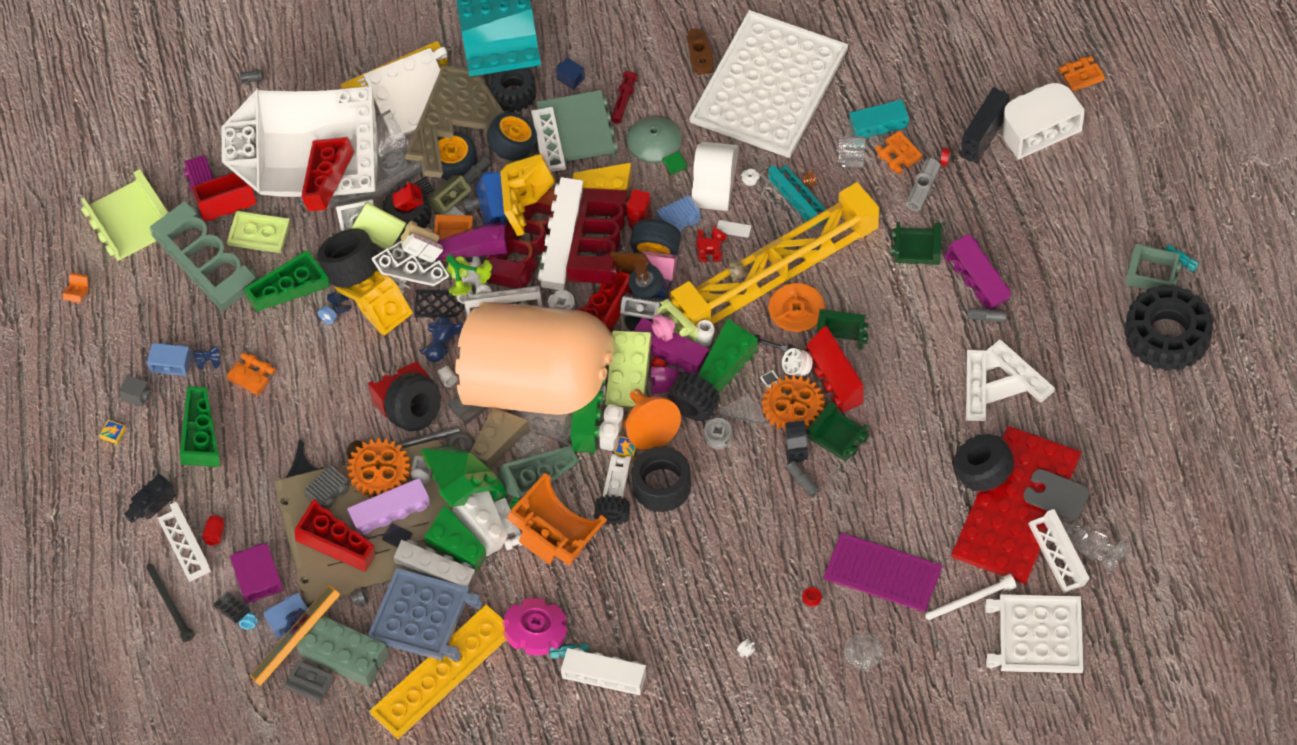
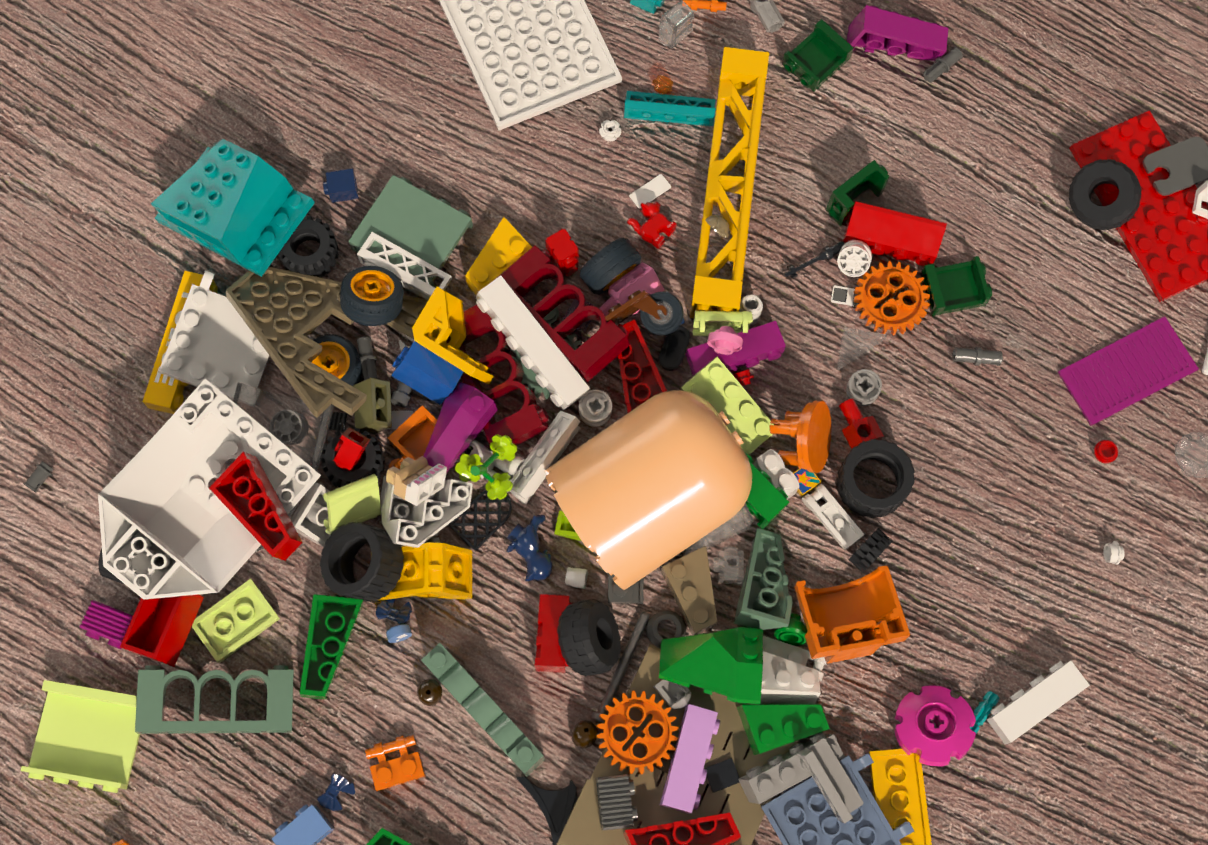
camera: 55 degrees left, 15 degrees up
(307, 356) = (436, 692): none -> dark brown piece
(320, 385) = (483, 709): none -> sand green fence
(443, 583) = (831, 779): none -> light grey panel
(625, 90) = (411, 152): dark red pin -> none
(640, 307) = (669, 346): light grey brick -> none
(654, 146) = (488, 187): sand green dish -> none
(663, 379) = (763, 386): magenta brick -> none
(674, 163) = (531, 180): green tile -> none
(680, 213) = (595, 224): medium blue brick -> none
(691, 446) = (857, 421): none -> red piece
(694, 396) = (816, 377): black tyre -> none
(699, 52) = (419, 48): reddish brown piece -> none
(714, 175) = (582, 155): white brick -> none
(728, 355) = (790, 306): green wedge -> none
(796, 297) = (804, 201): orange piece -> none
(796, 441) = (940, 330): black arch -> none
(1021, 379) = (1018, 138): white plate -> none

